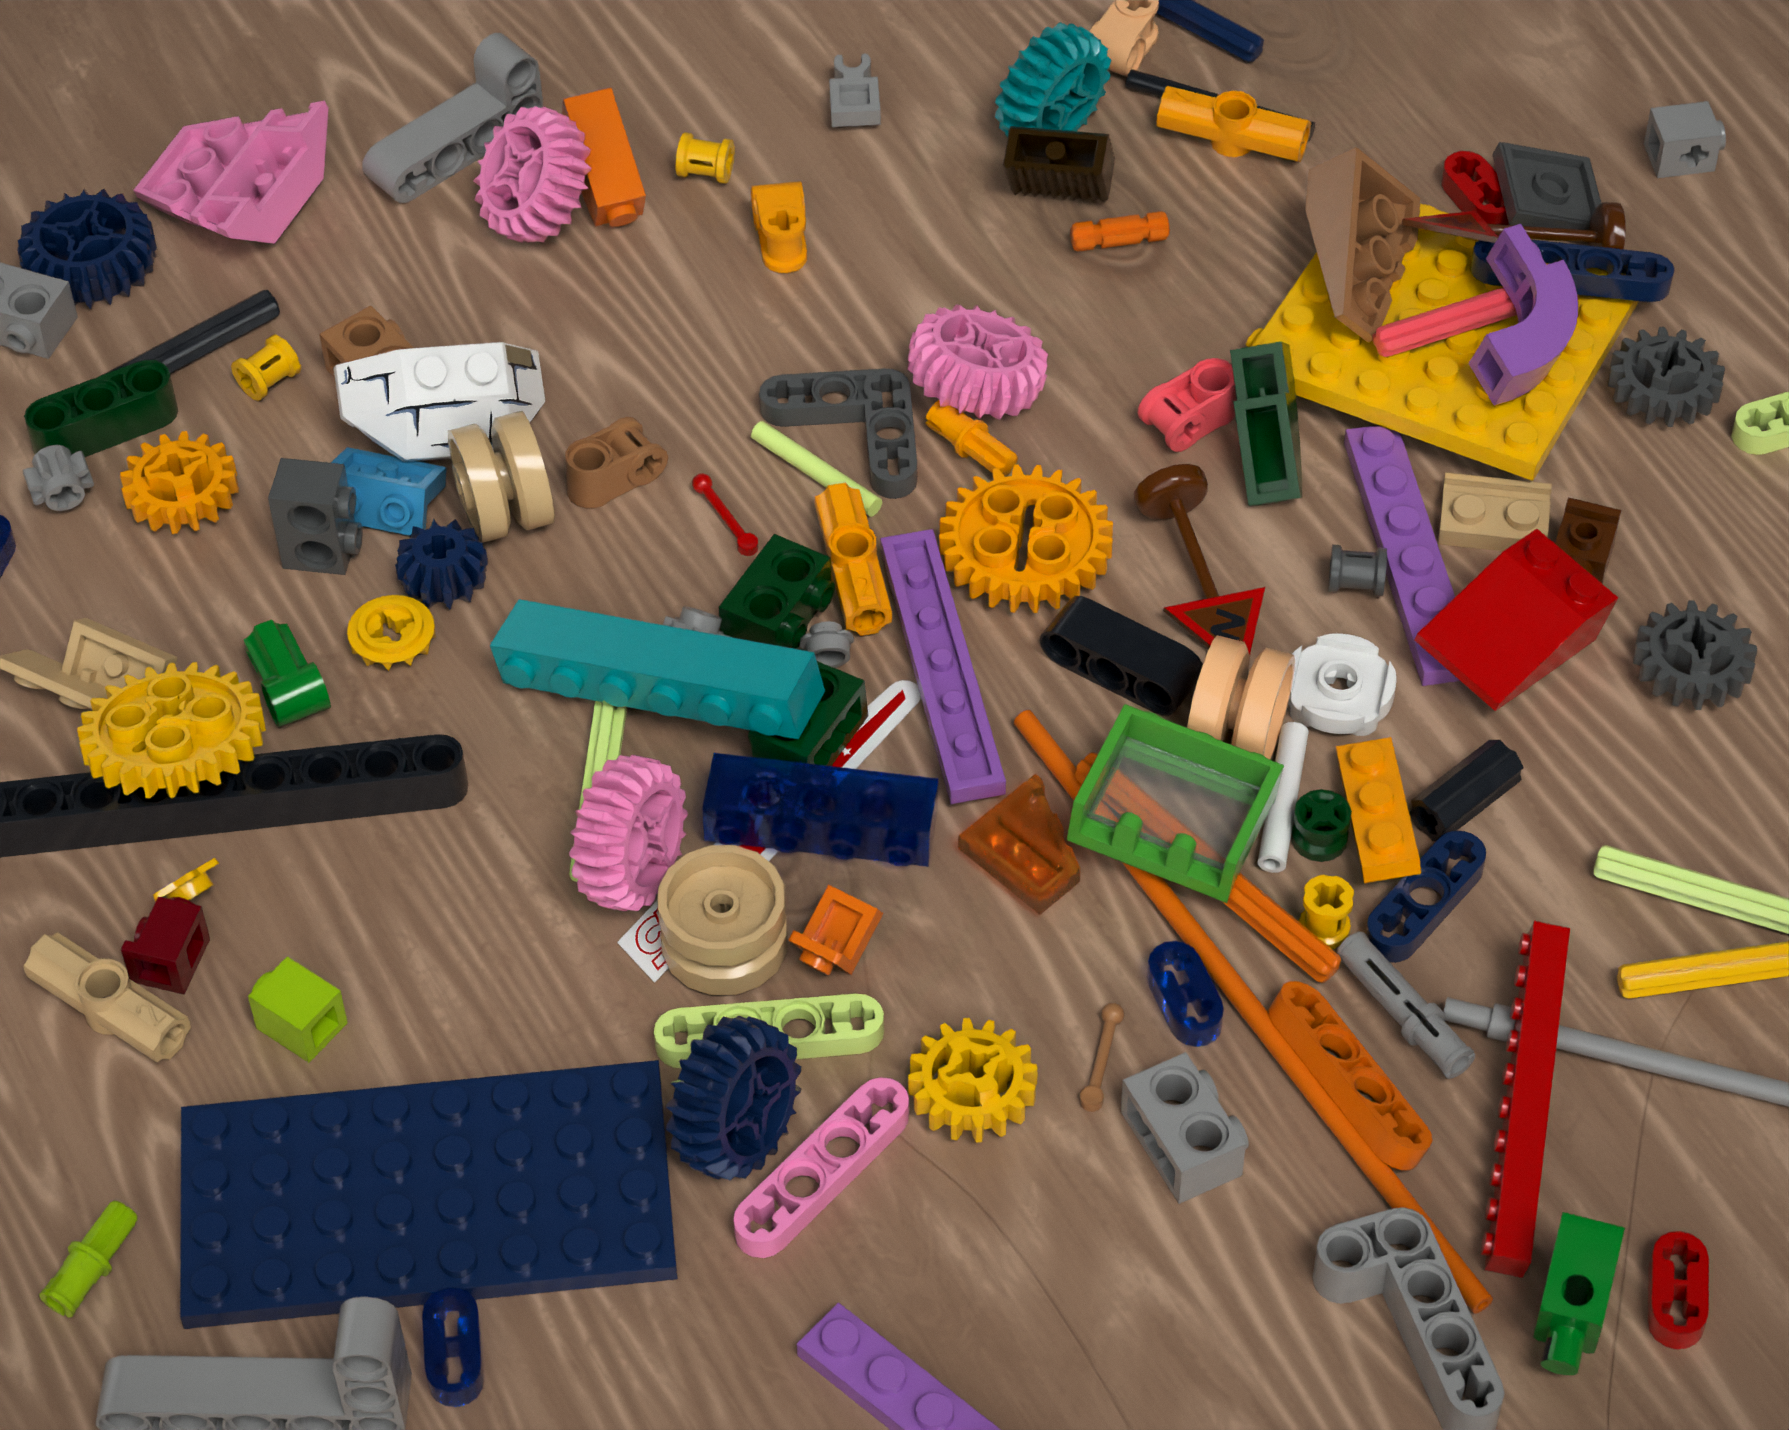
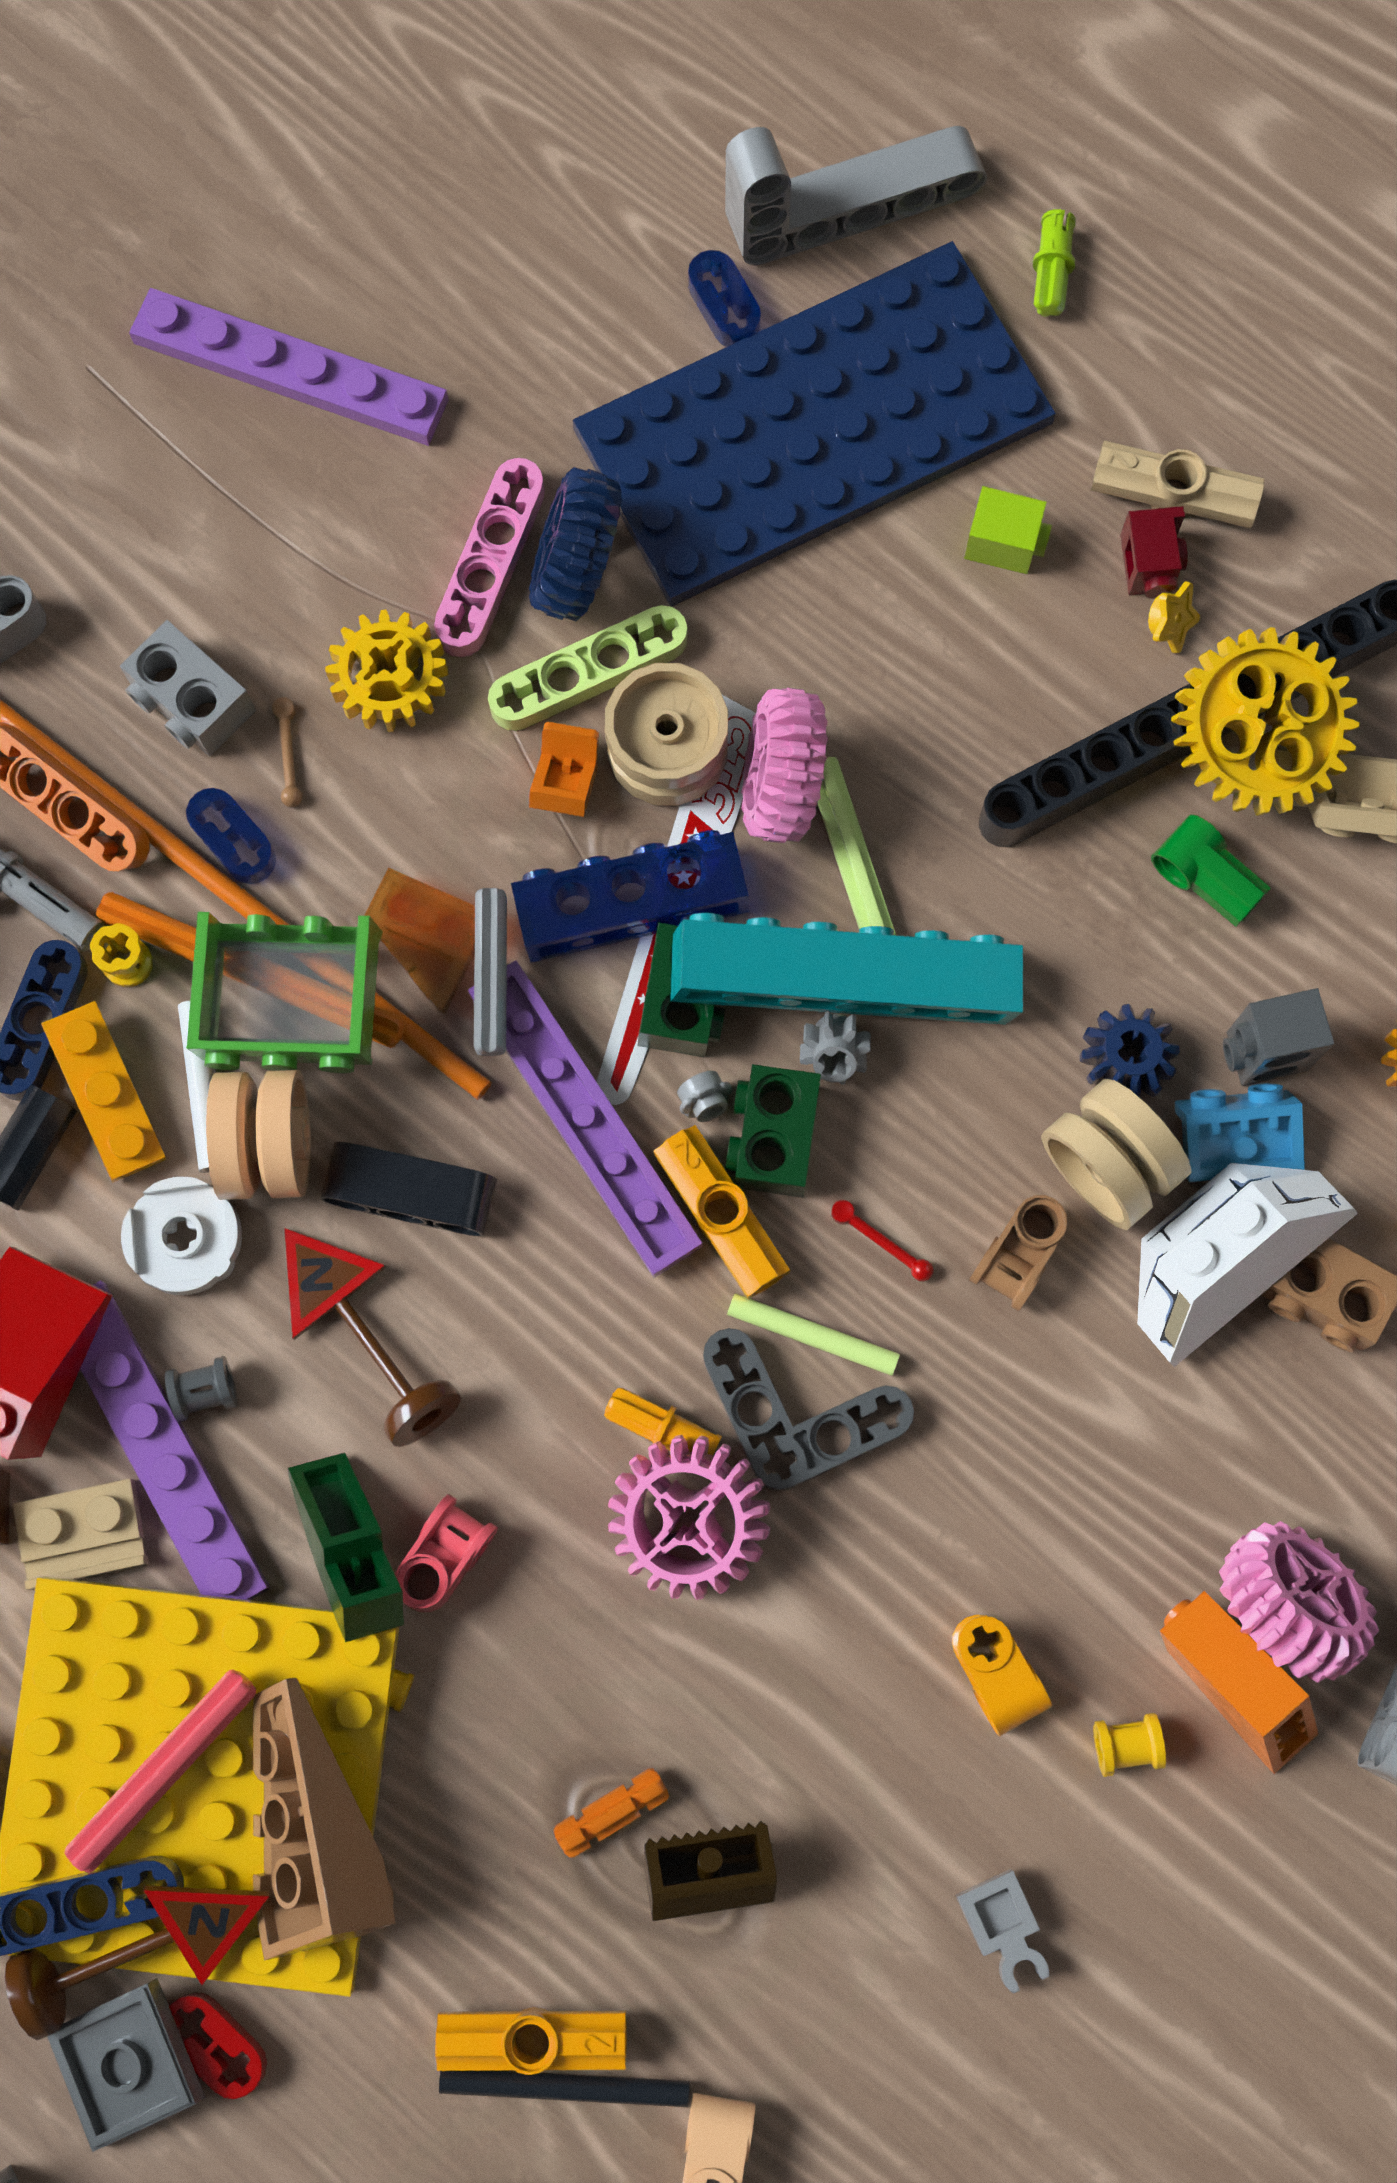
camera: 160 degrees right, 25 degrees up
(401, 614) = (1135, 940): yellow gear -> none
(978, 776) = (490, 972): none -> light grey axle
(1054, 81) = (758, 1992): teal gear -> none
(1064, 545) = (504, 1315): light orange gear -> none
(1317, 812) = (143, 1049): dark green wheel -> none
(1547, 312) = (59, 1755): medium lavender arch -> none

